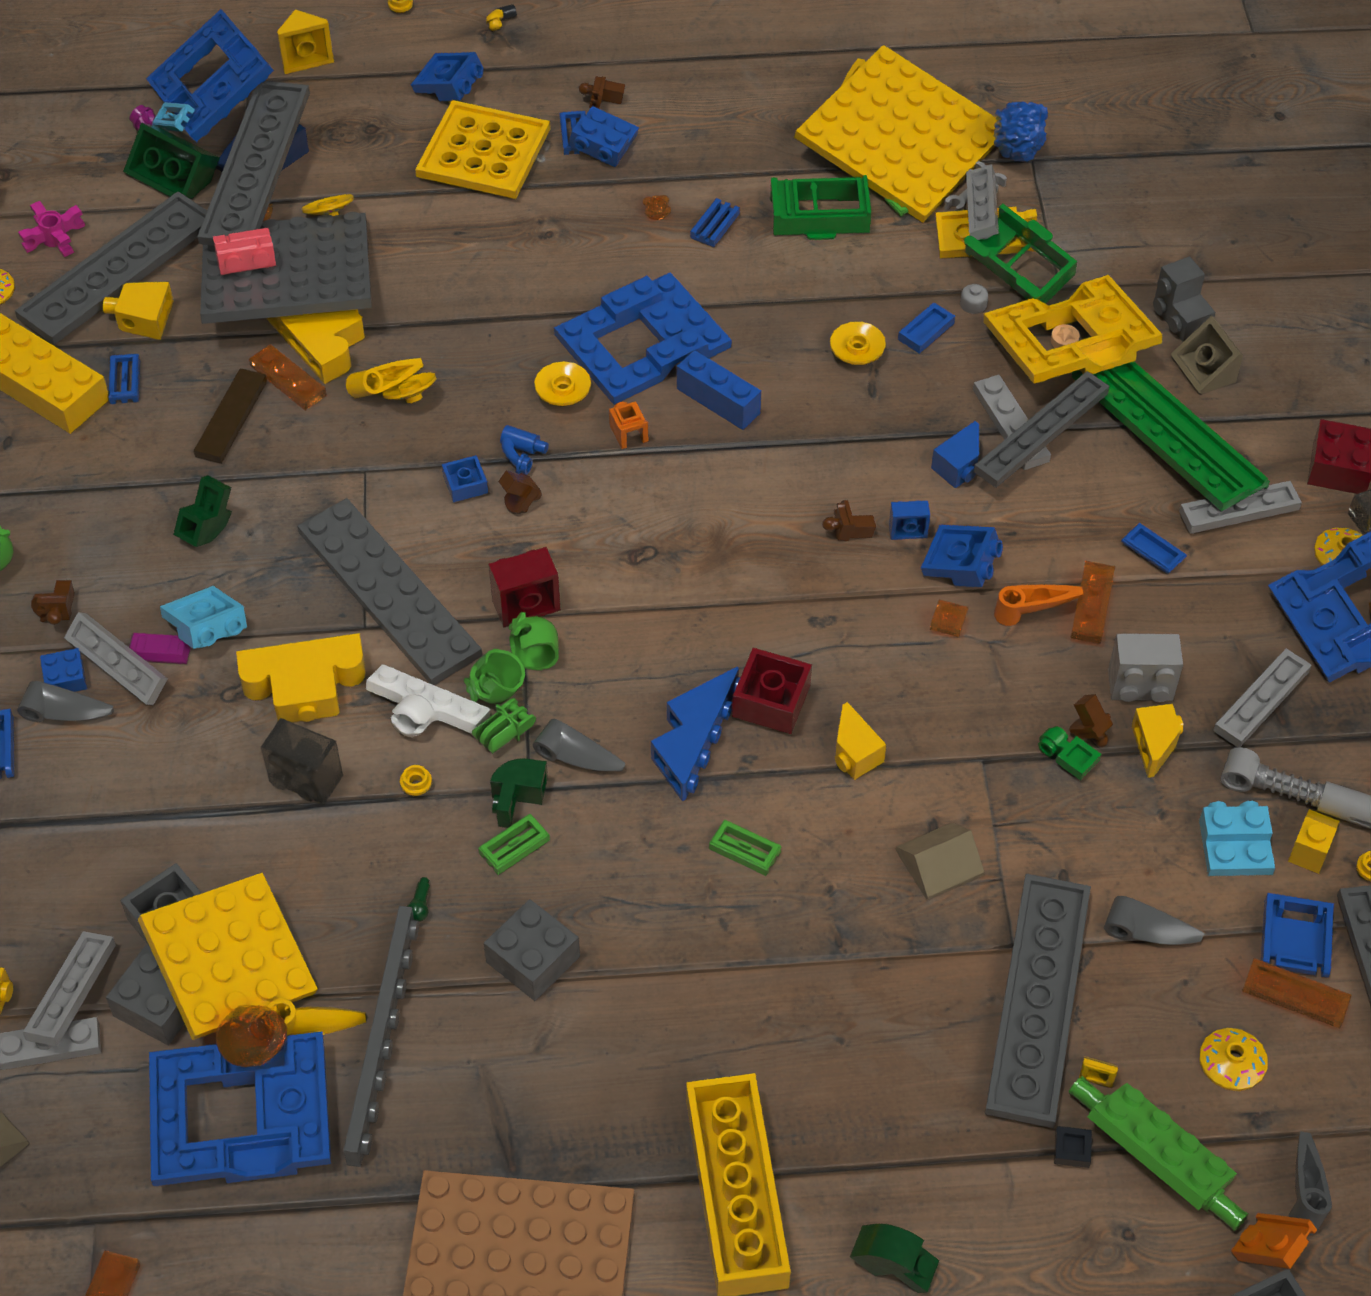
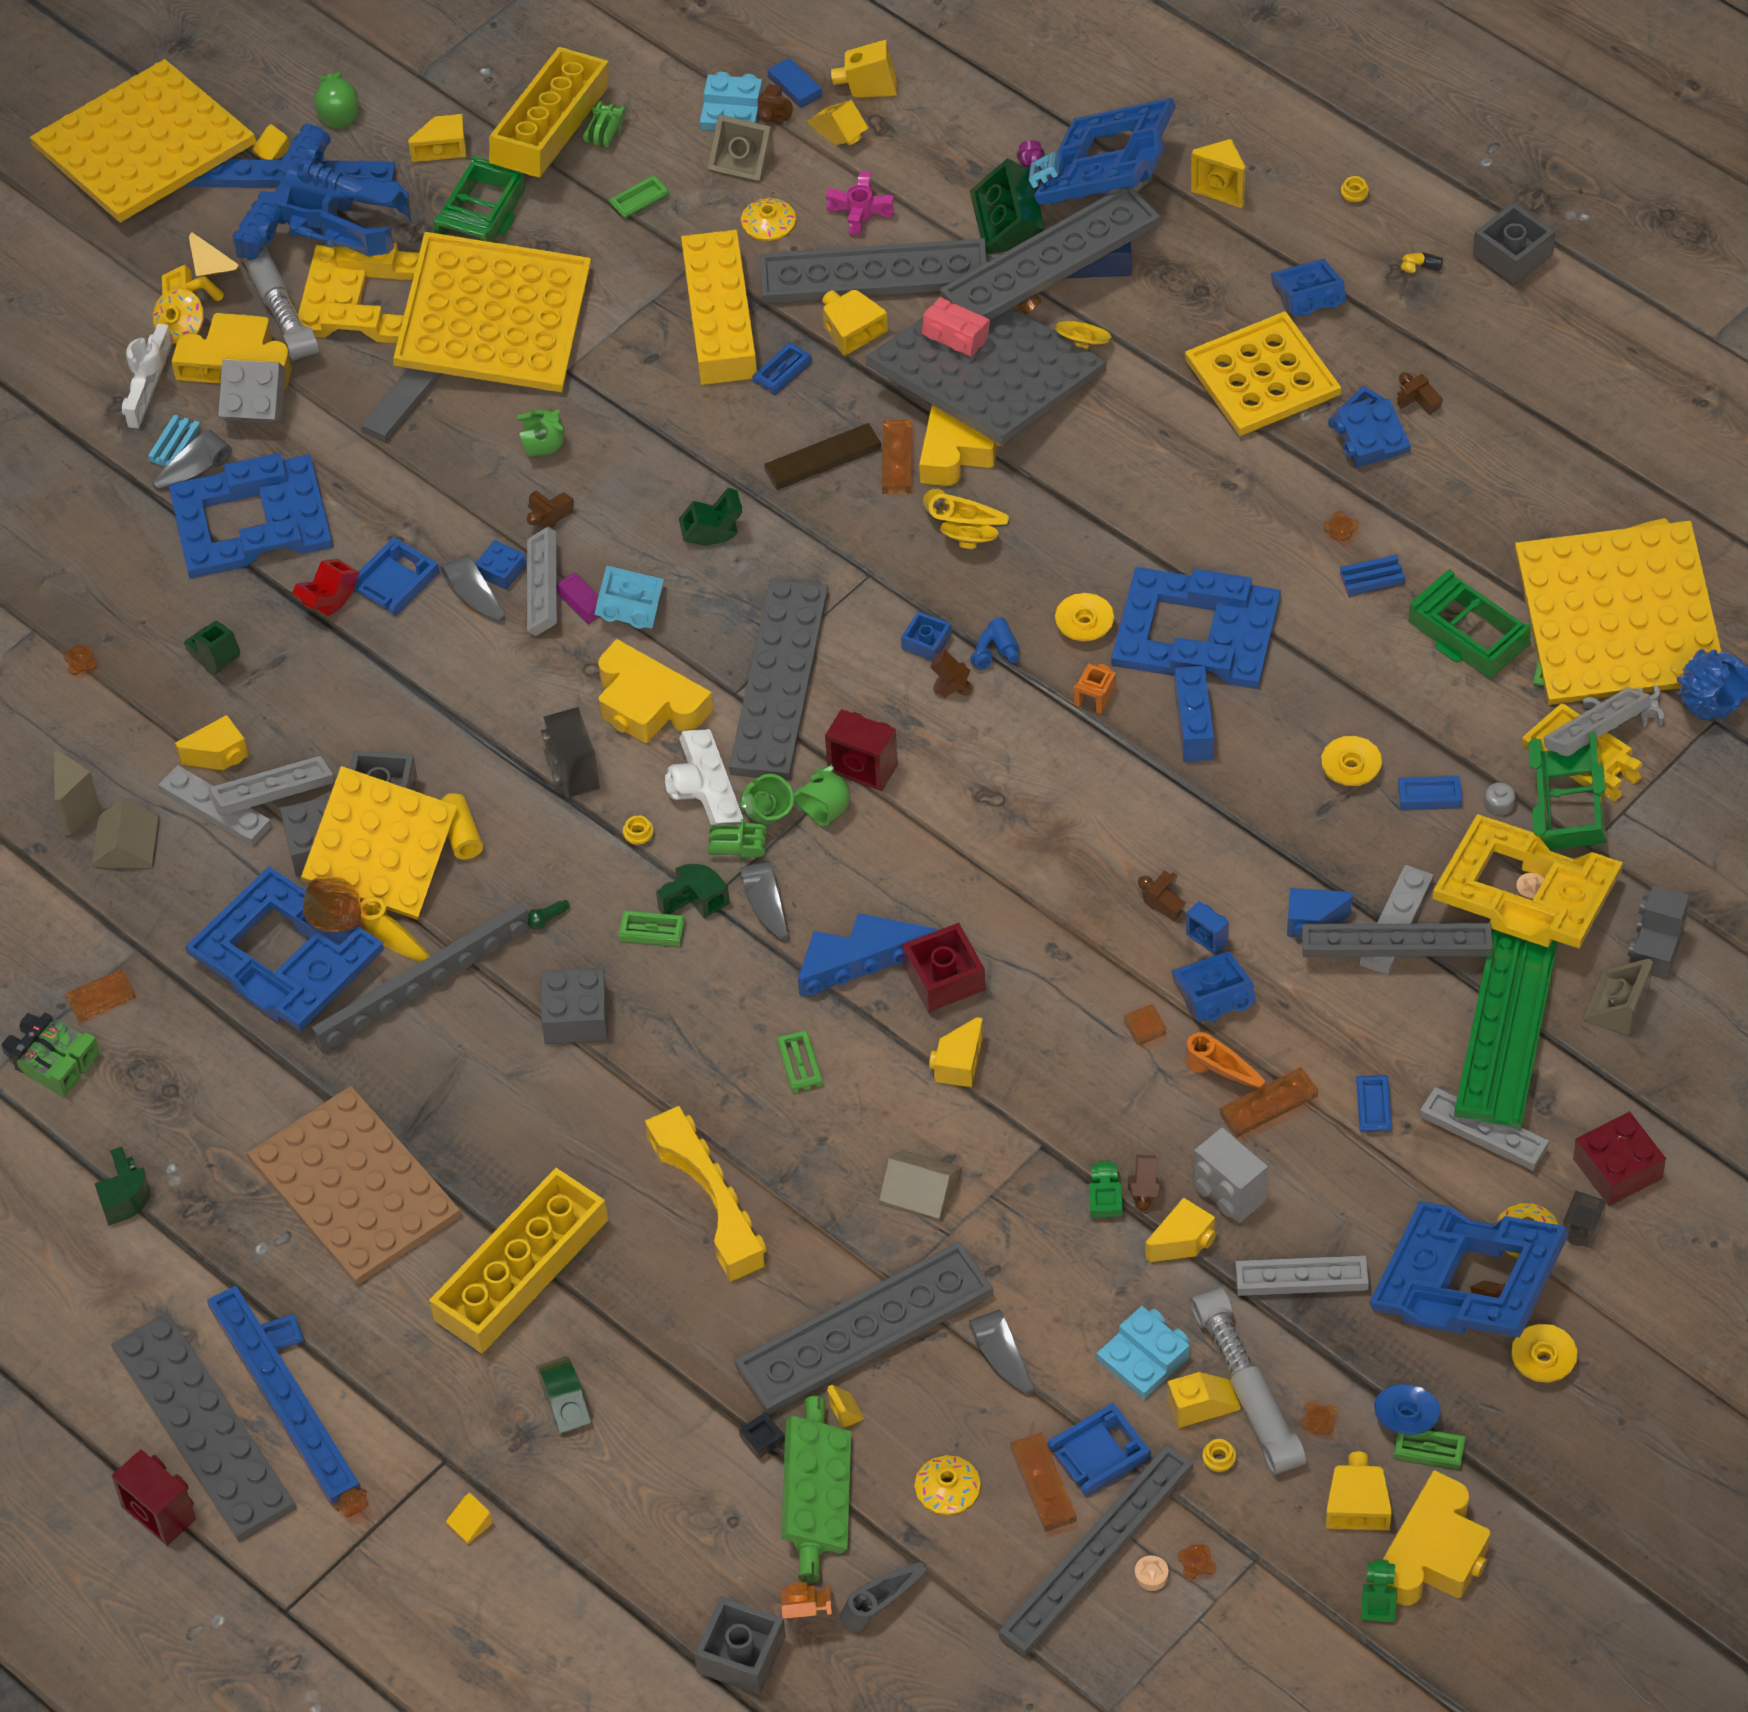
camera: 50 degrees right, 0 degrees up
(287, 894) = (463, 831): none -> yellow brick
(740, 984) = (677, 1145): none -> yellow arch

